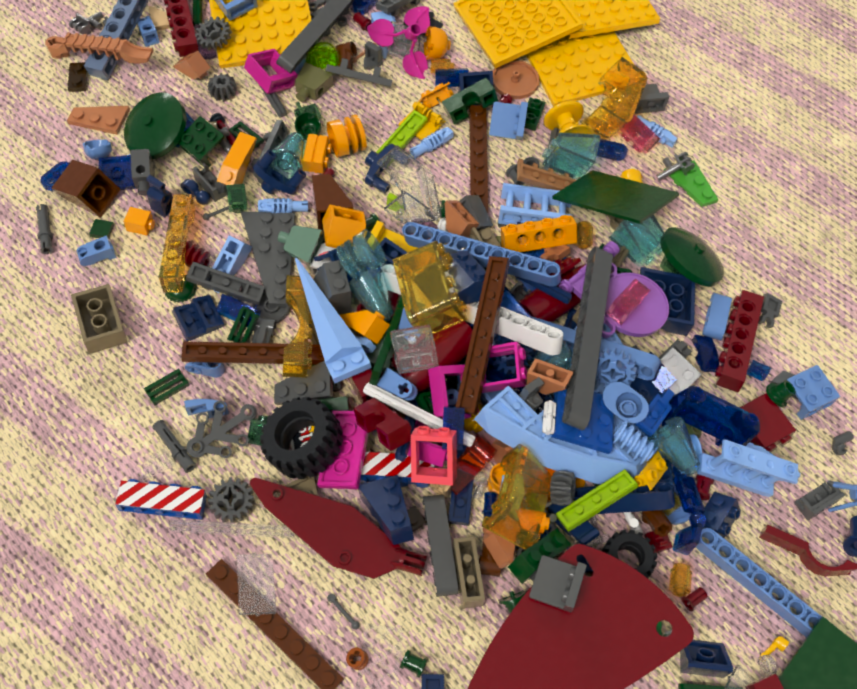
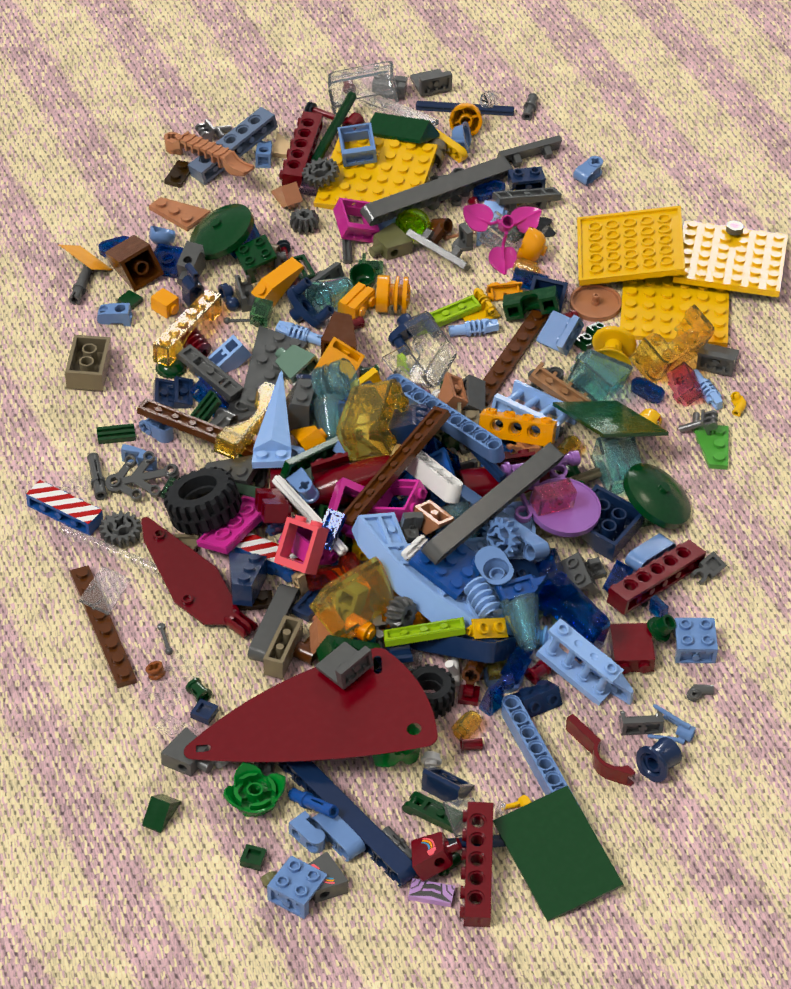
camera: 30 degrees right, 15 degrees down
(34, 199) = (85, 257): none -> light orange sticker
(414, 349) = (330, 459): clear slope -> none
(687, 134) = (739, 403): none -> yellow arm

